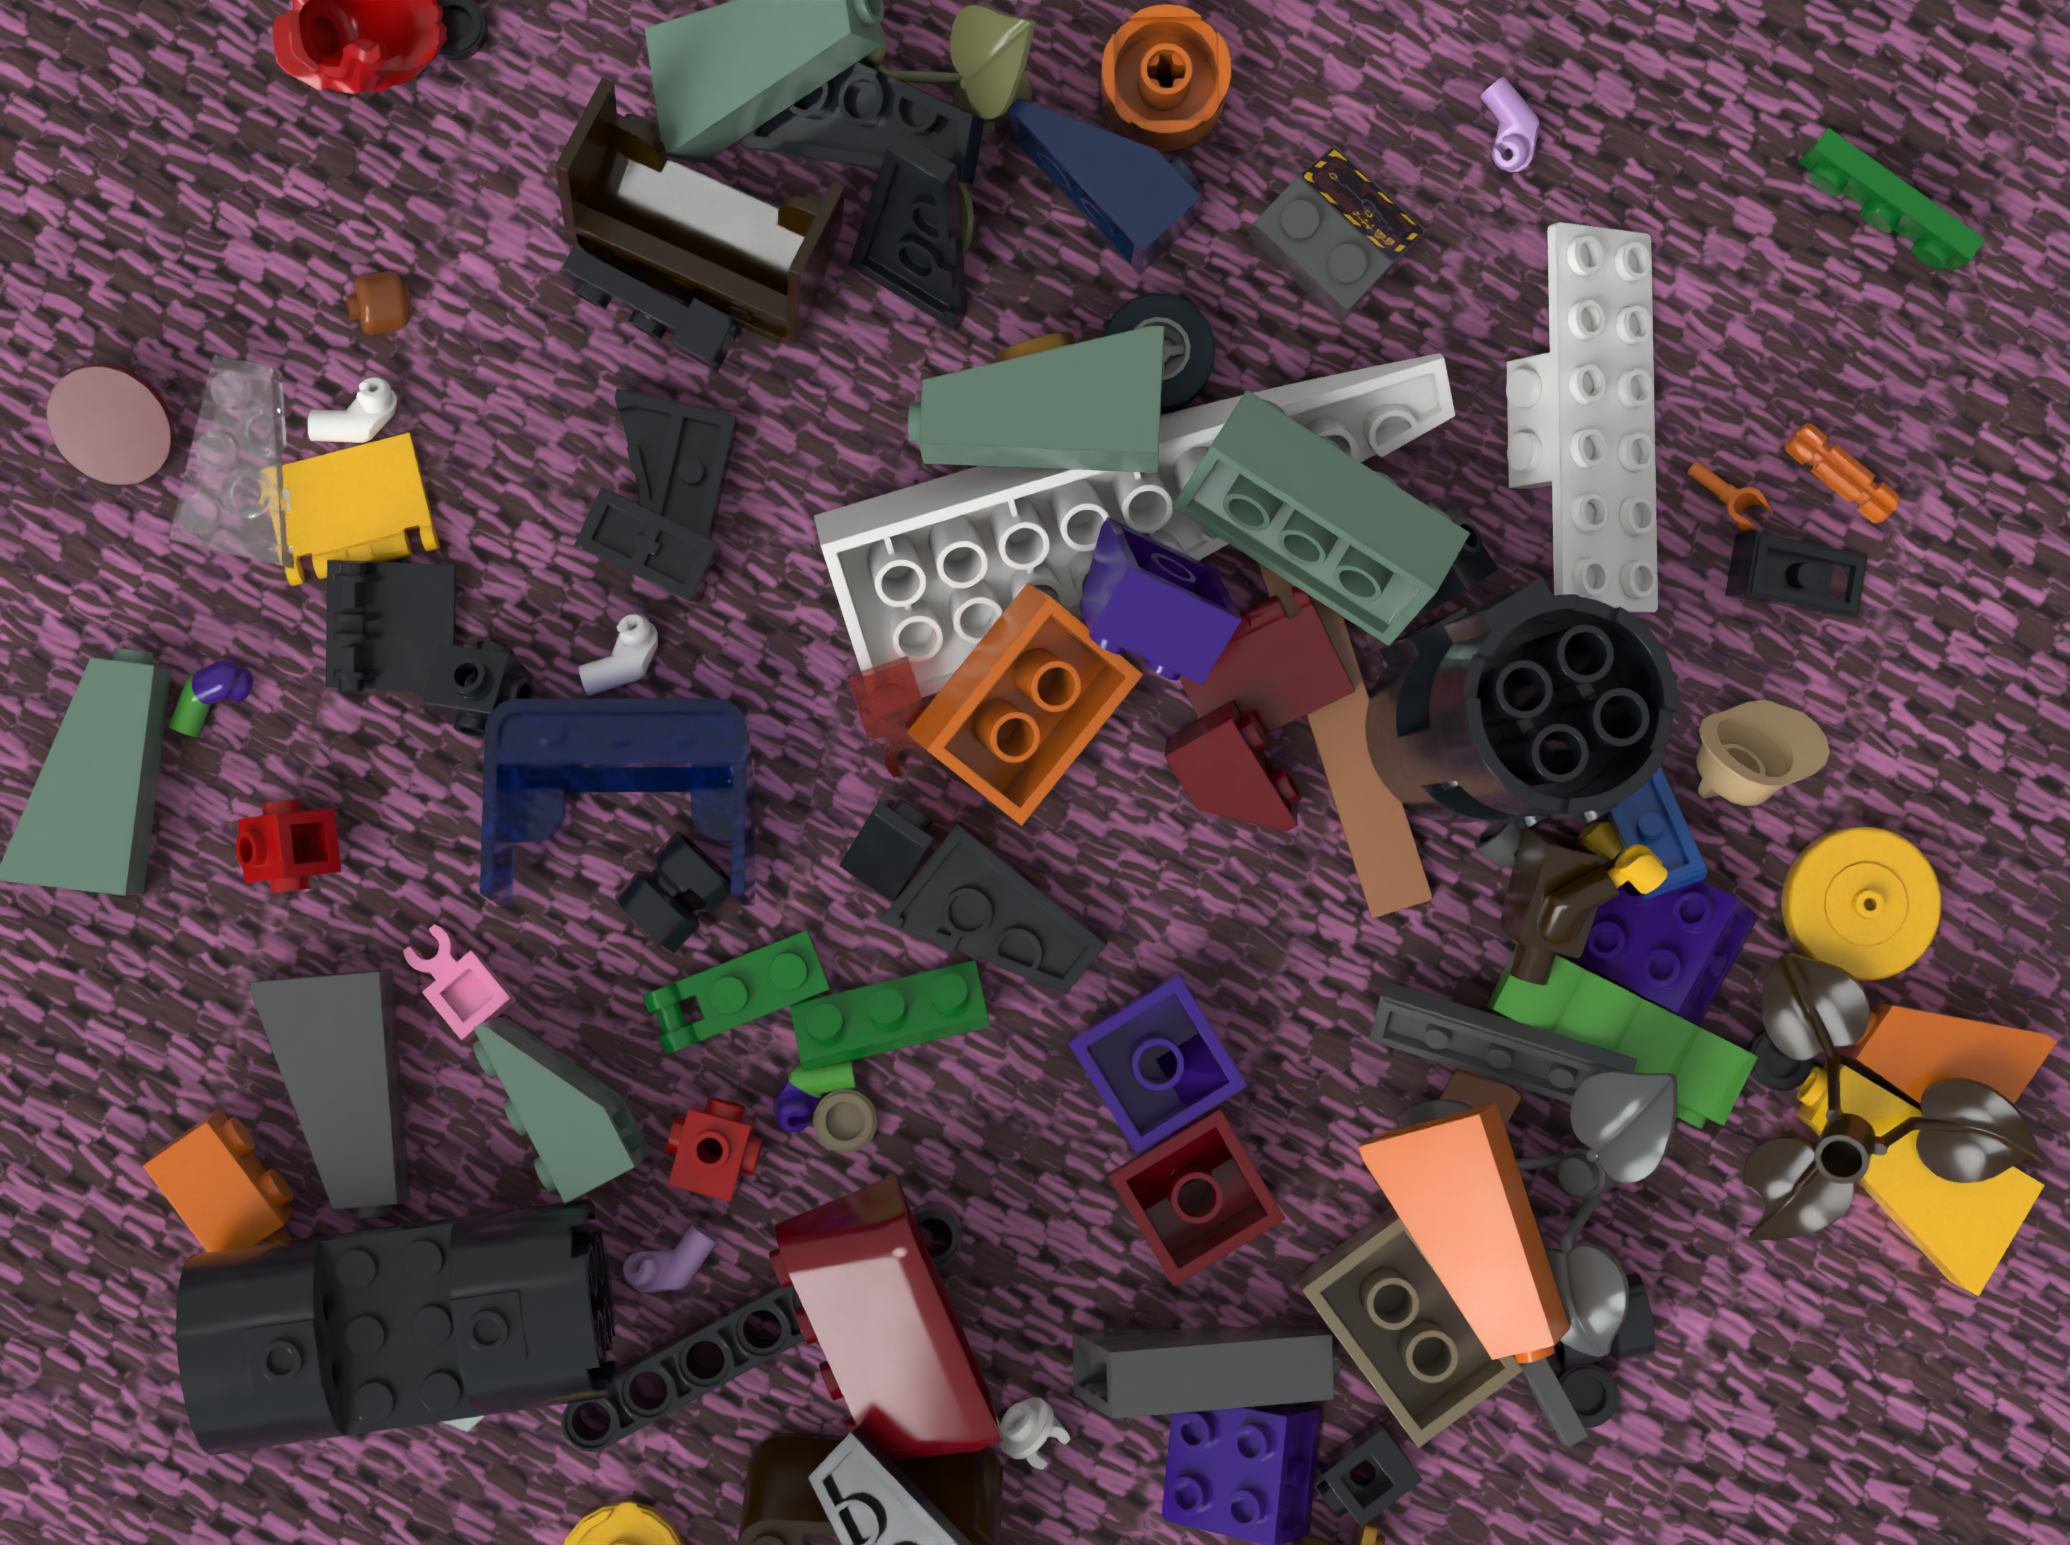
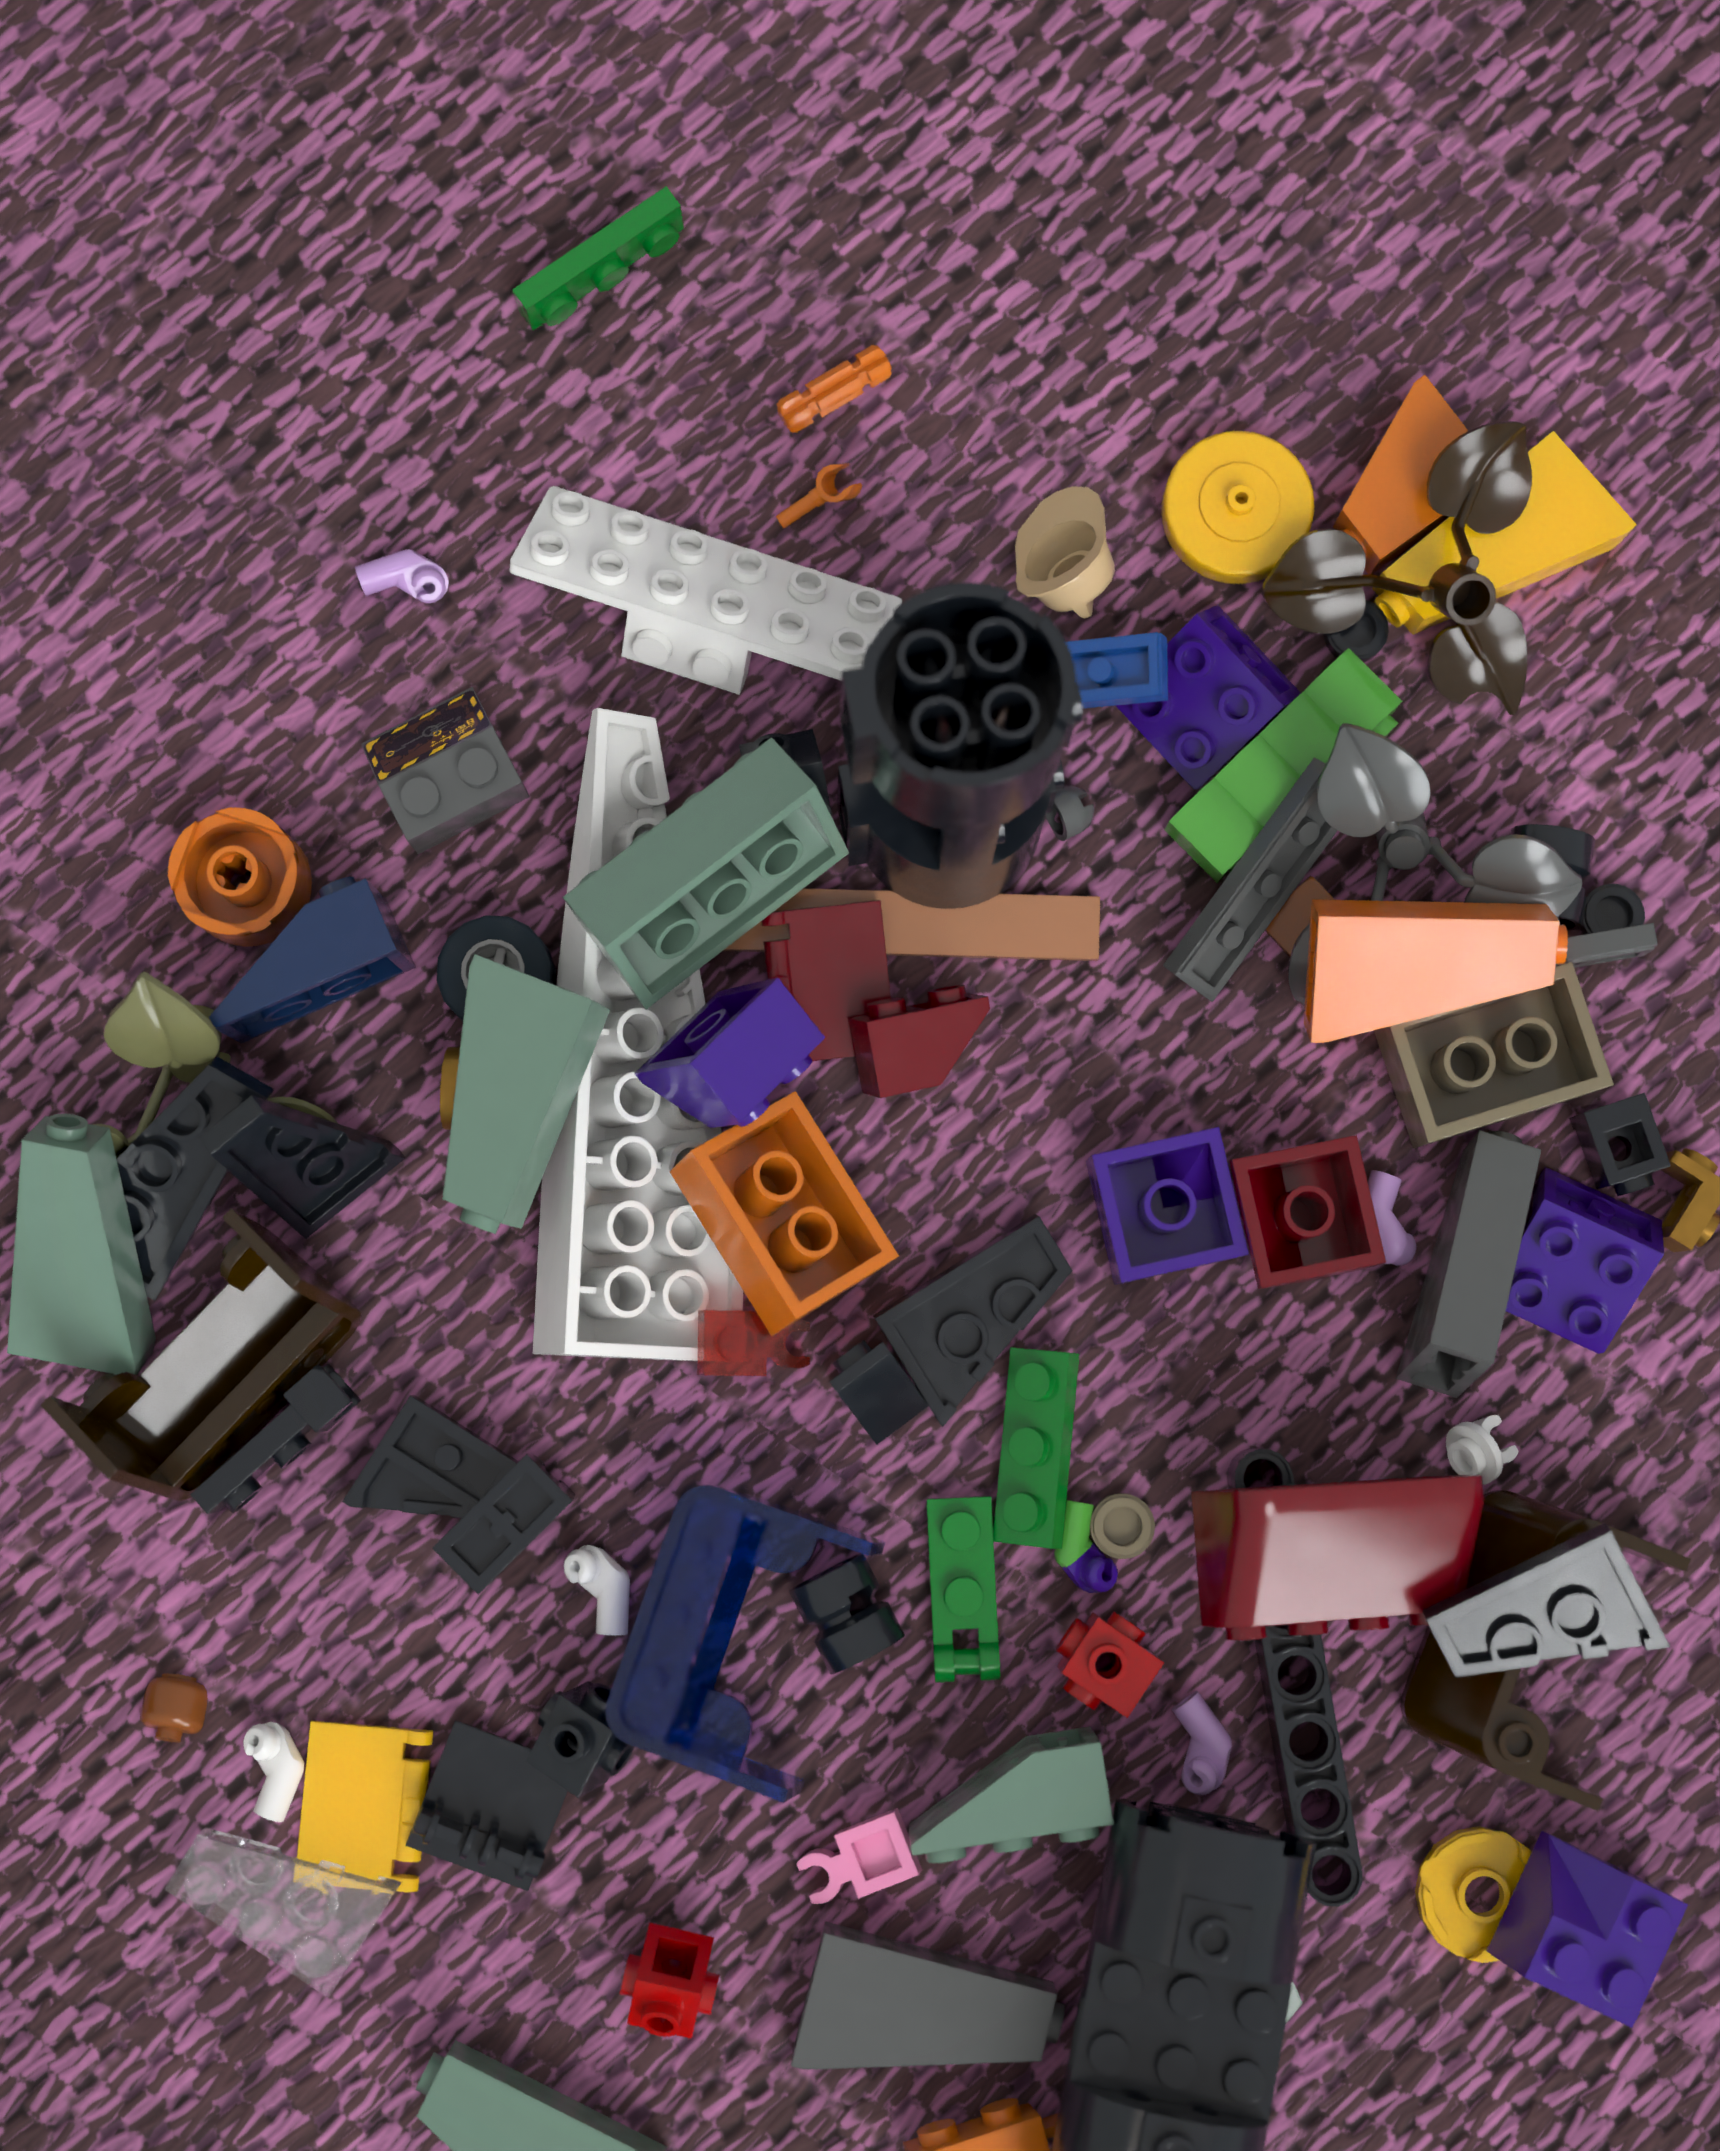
camera: 75 degrees left, 5 degrees down
(110, 423) = (194, 2016): piece -> none
(205, 688) = (487, 2011): arm -> none
(1197, 1291) = (1397, 1244): none -> lavender arm
(1559, 887) = (1131, 772): dark brown torso -> none
(1793, 573) = (911, 464): black slope -> none

